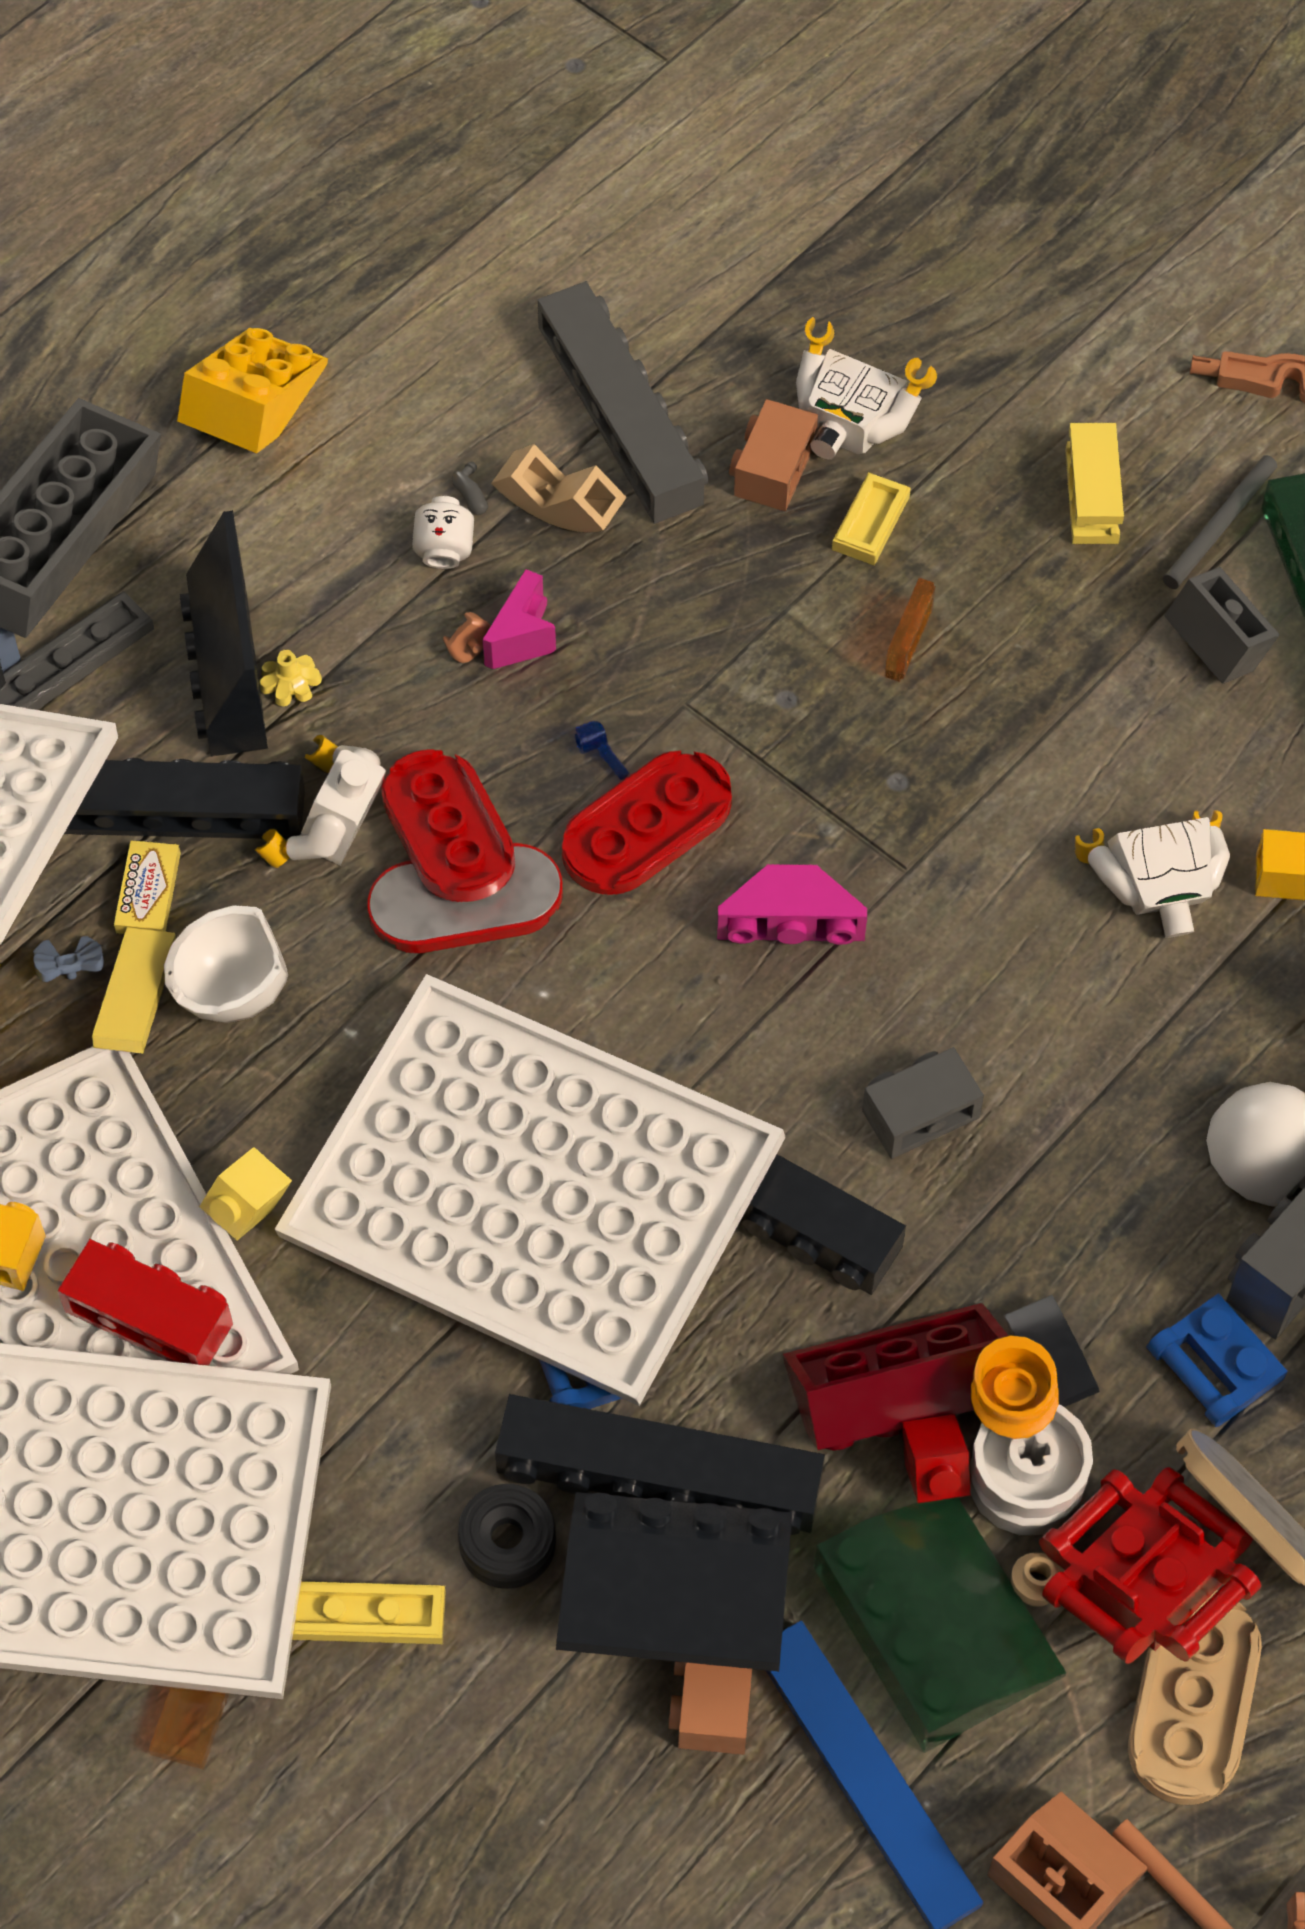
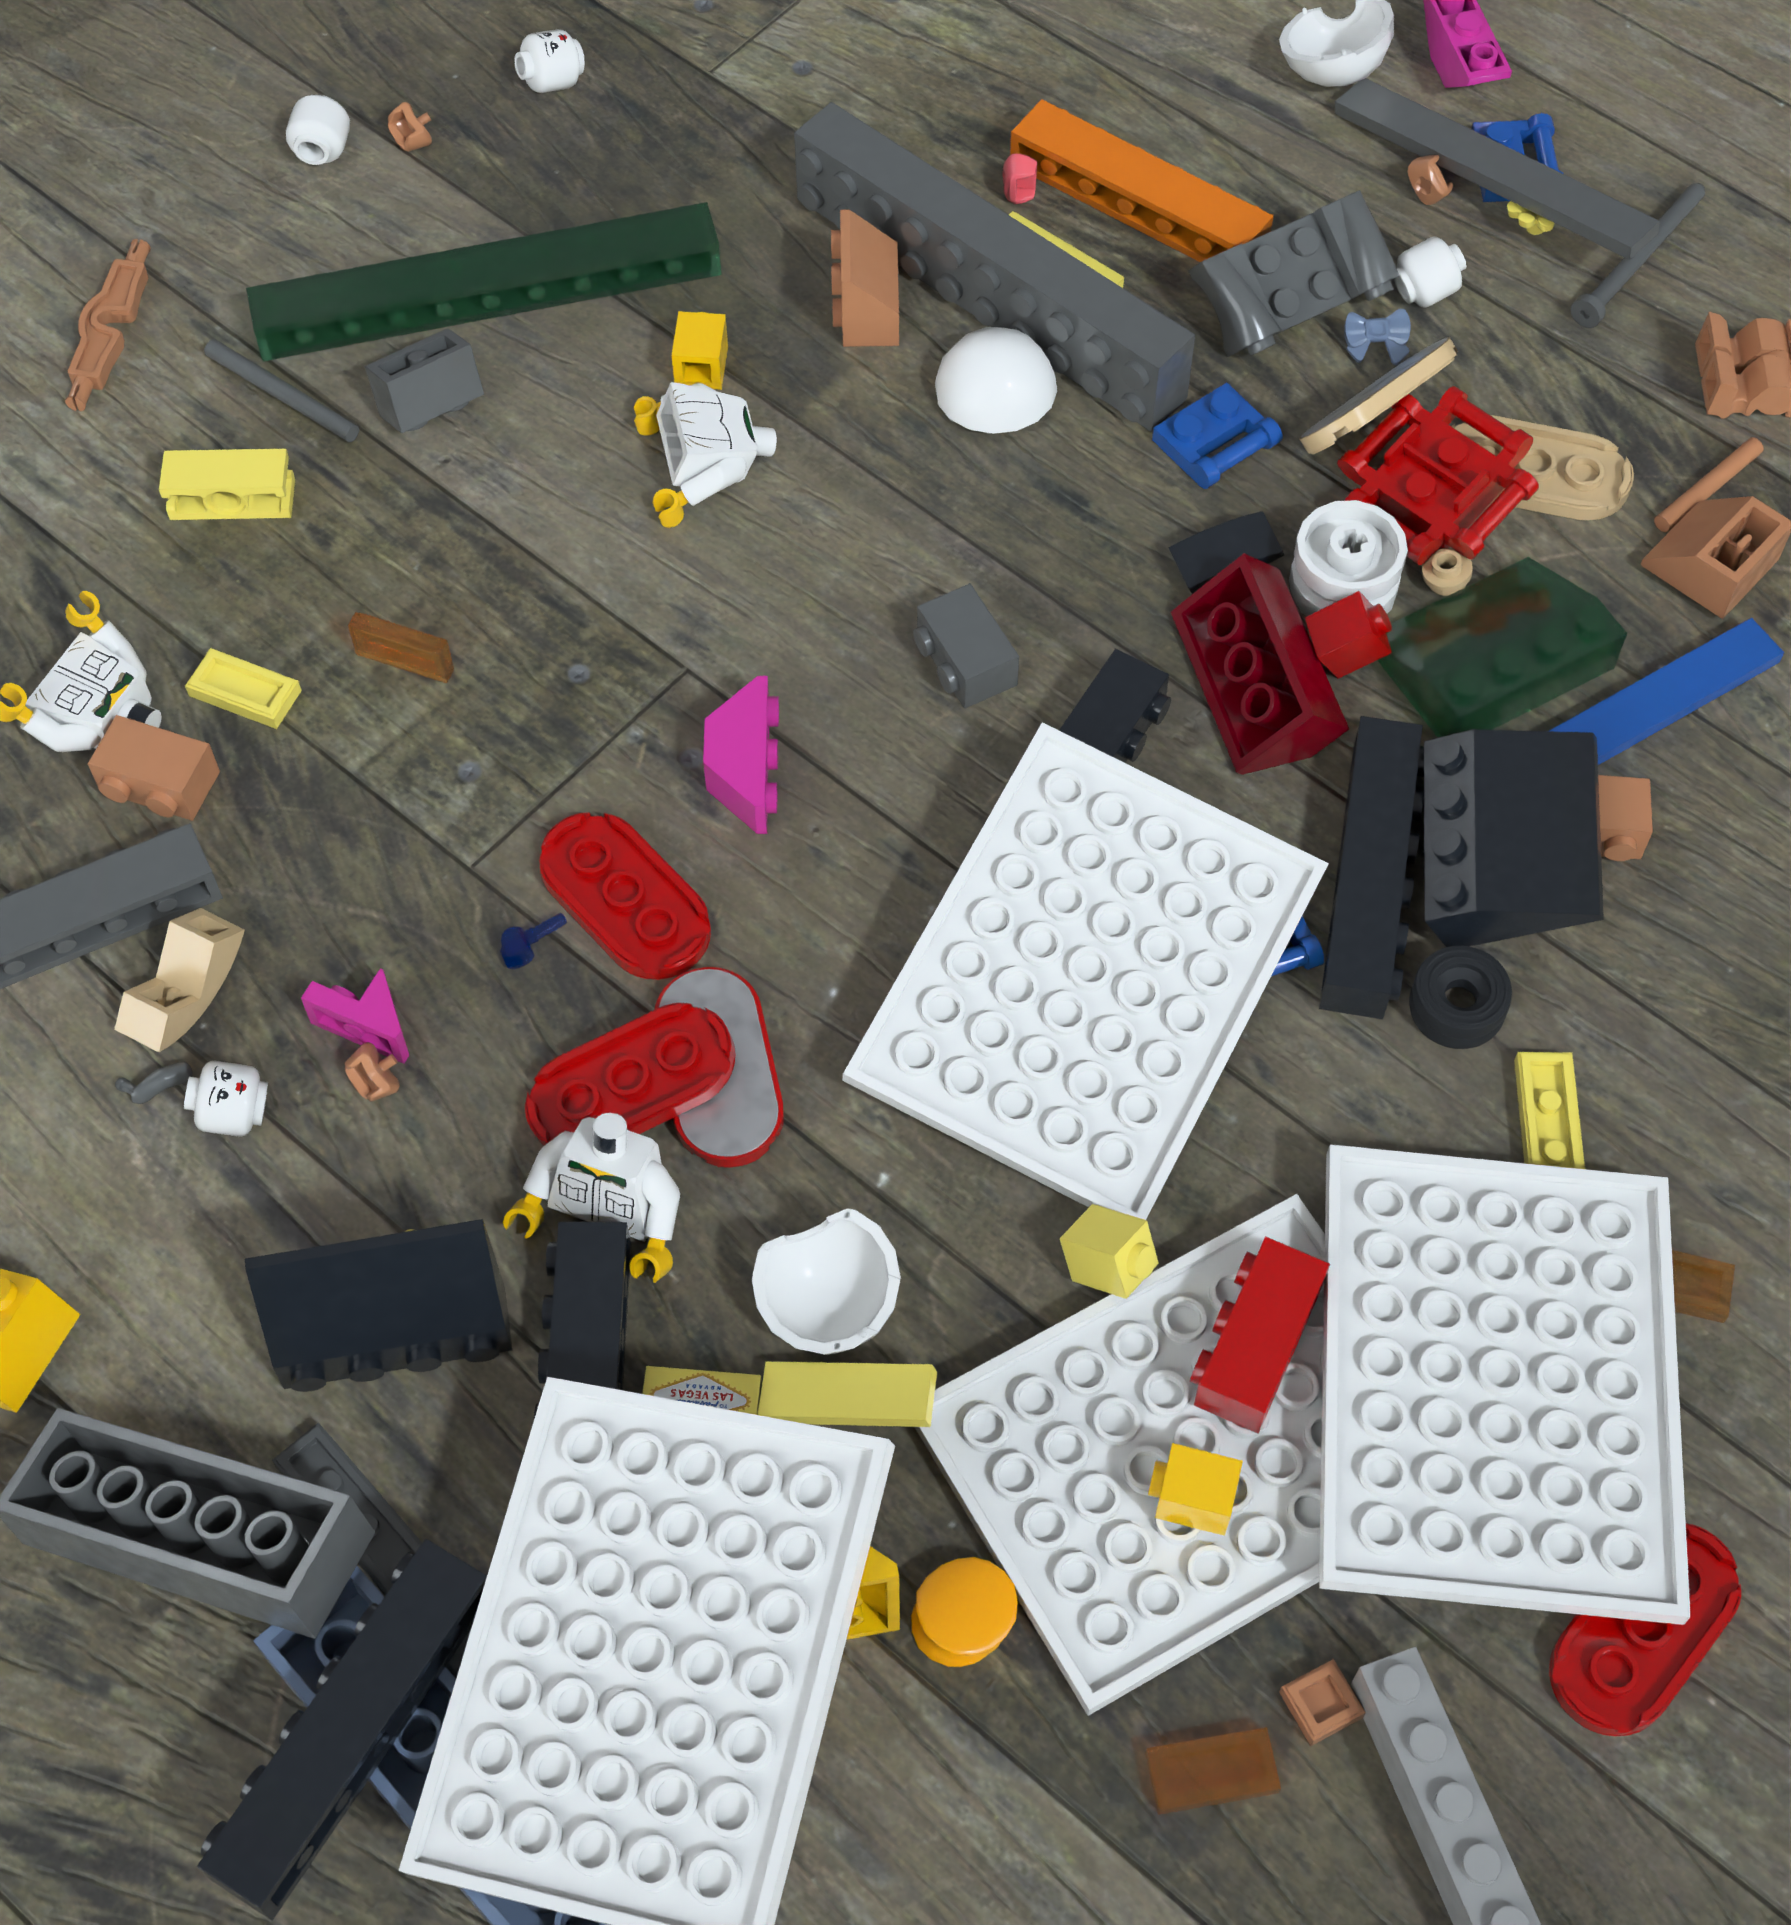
camera: 90 degrees left, 0 degrees up
(1015, 1387) = (1297, 546): light orange piece -> none

